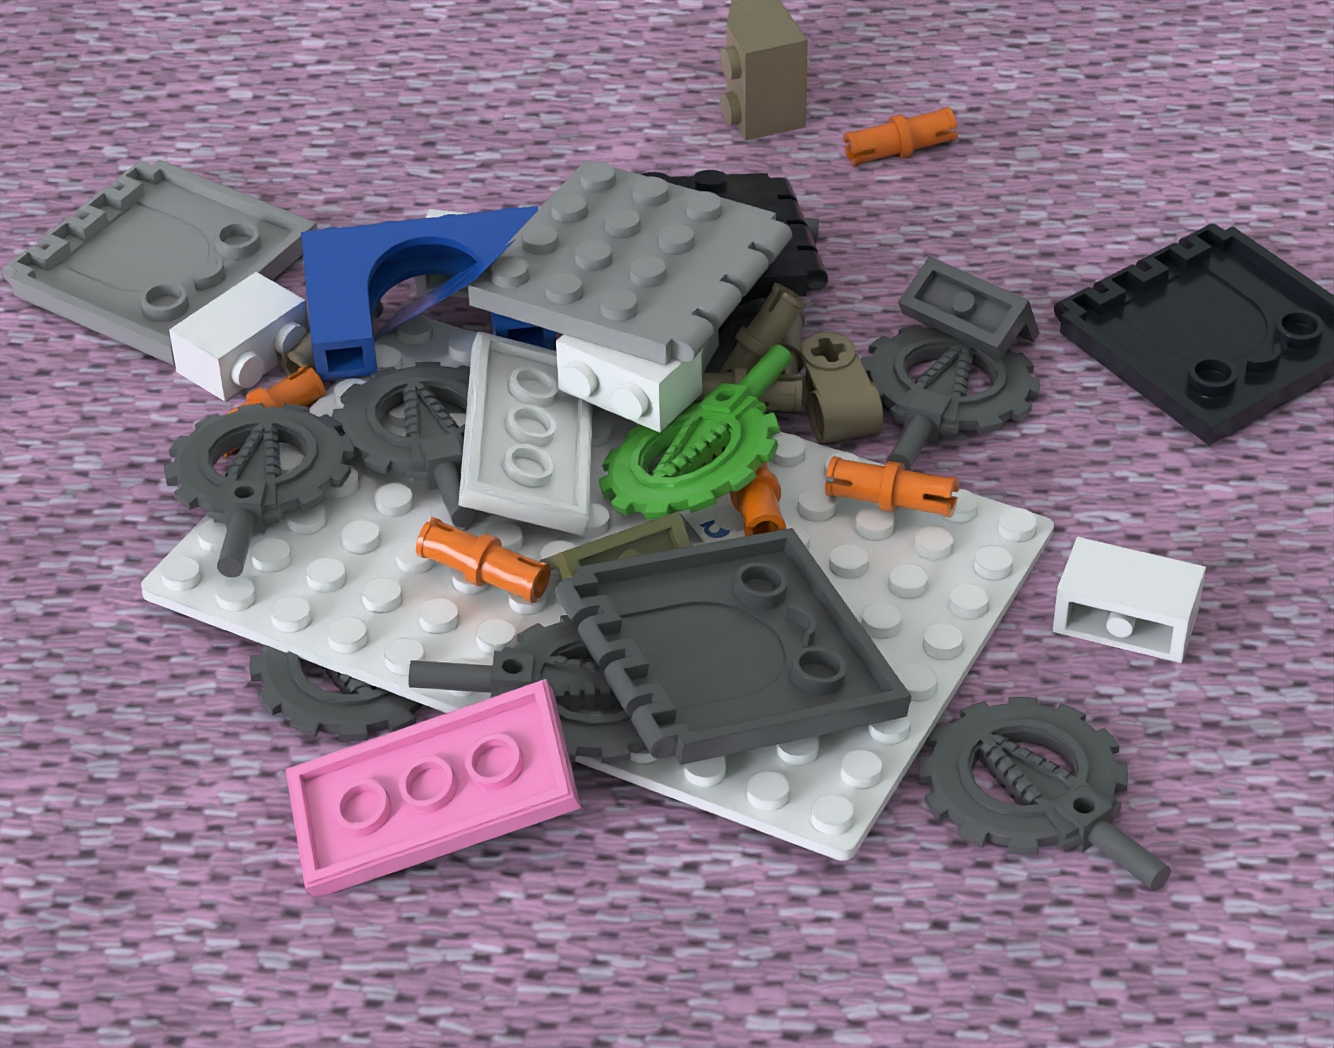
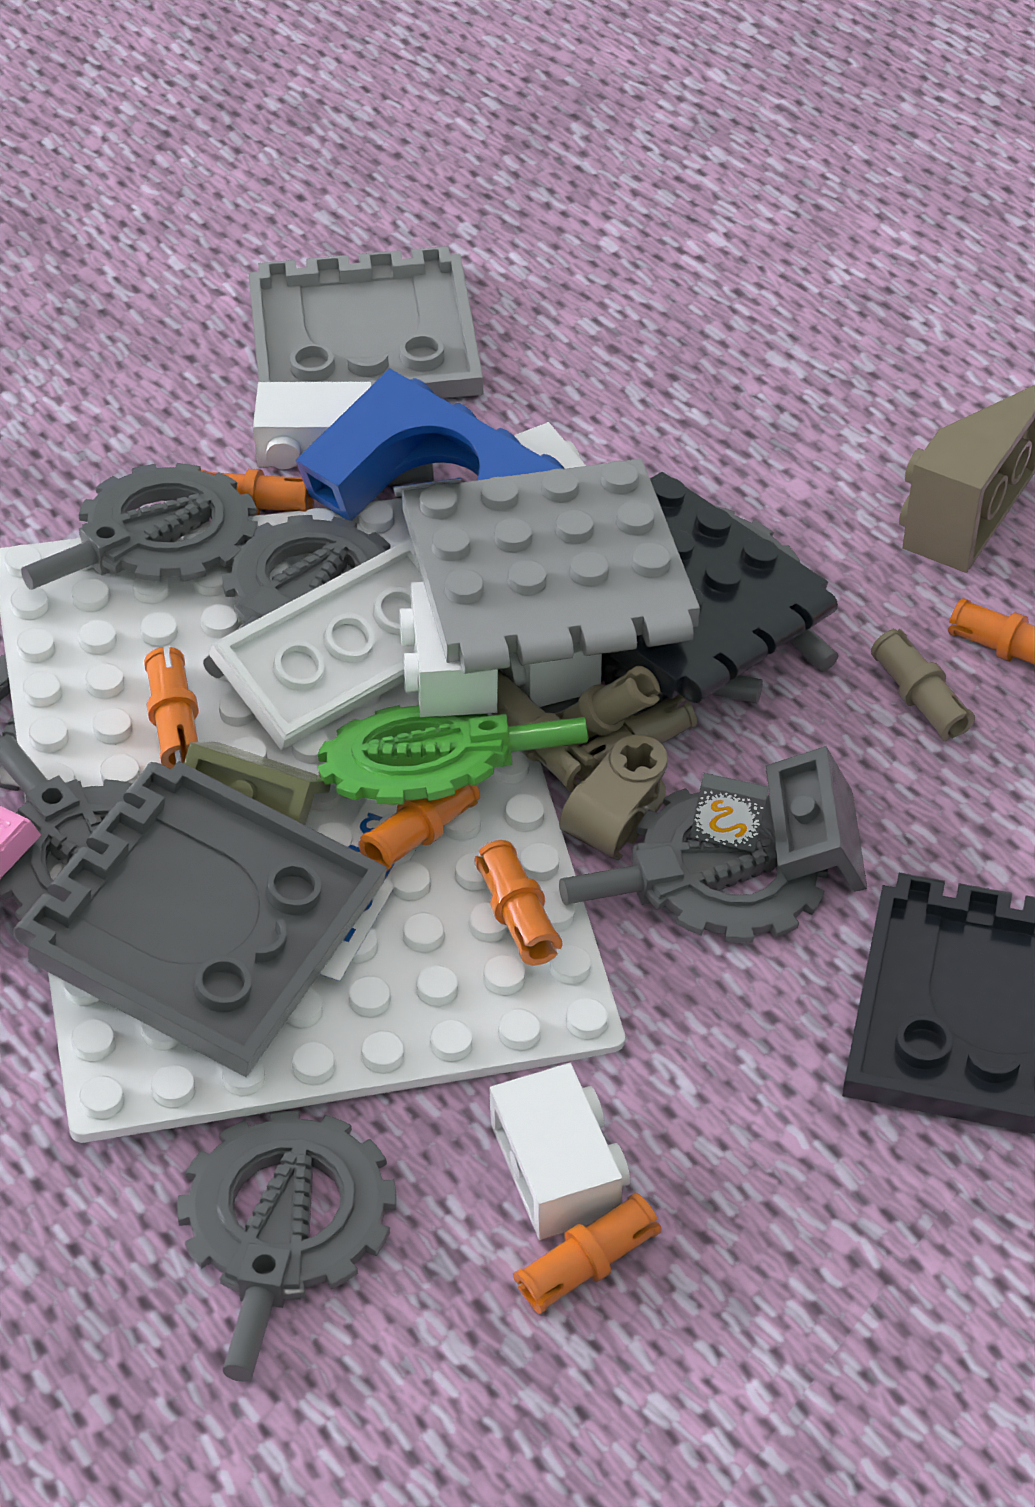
camera: 50 degrees right, 5 degrees up
(894, 199) = (922, 684): none -> dark tan pin
(933, 335) = (729, 812): none -> tile
(1229, 636) = (587, 1252): none -> orange pin

